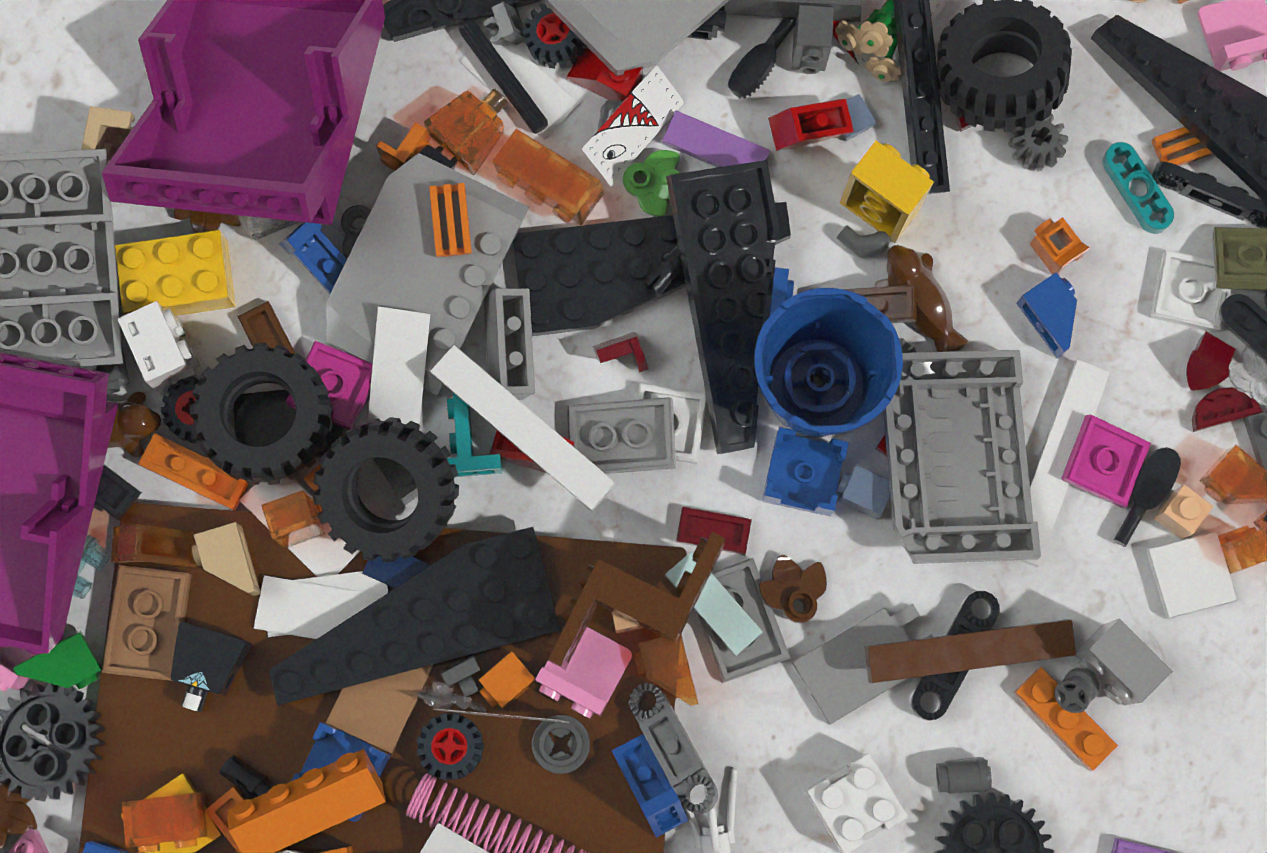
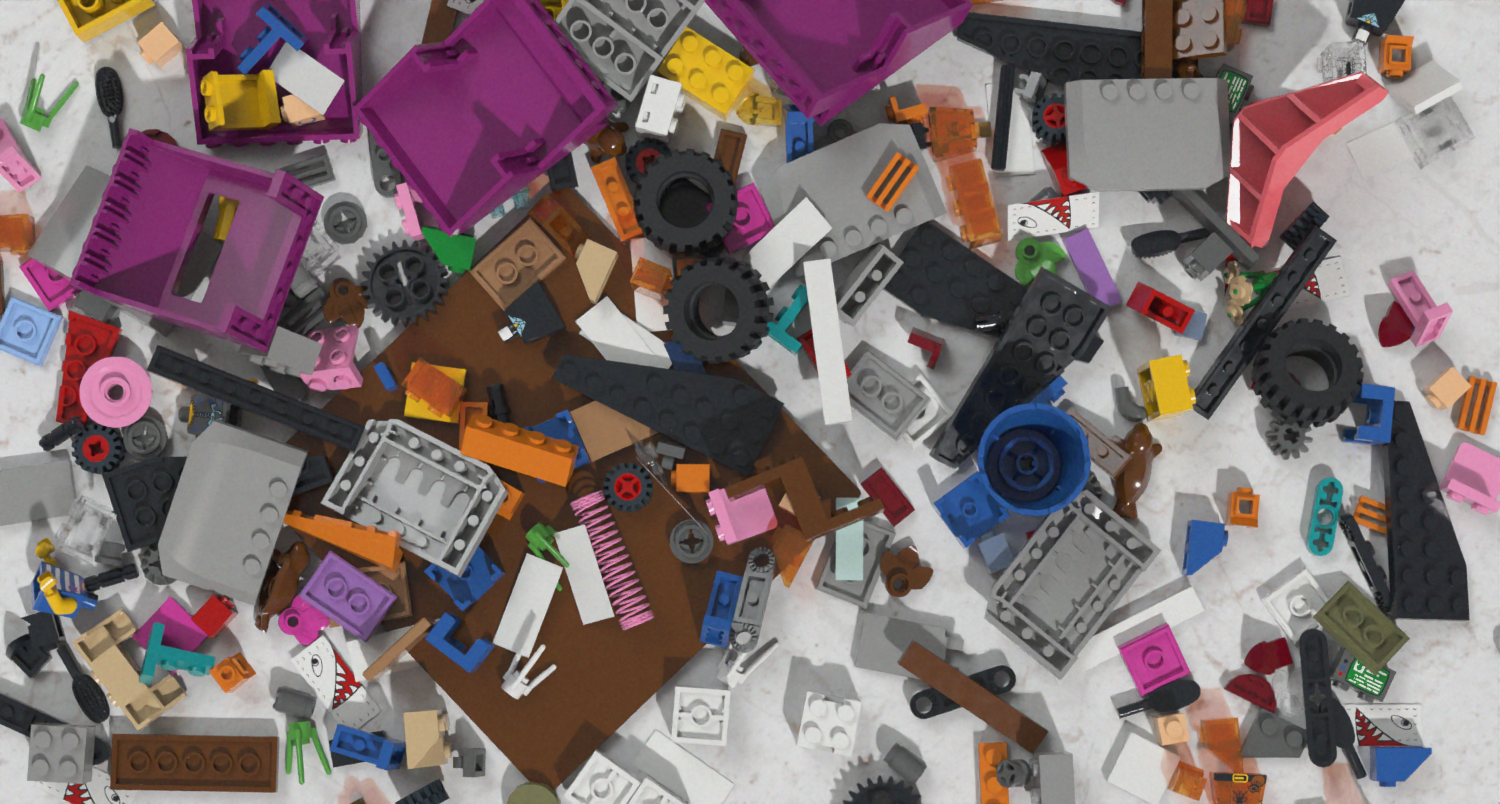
camera: 45 degrees right, 5 degrees up
(261, 266) = (760, 110): none -> clear yellow tile
(1103, 50) = (1378, 416): none -> blue panel

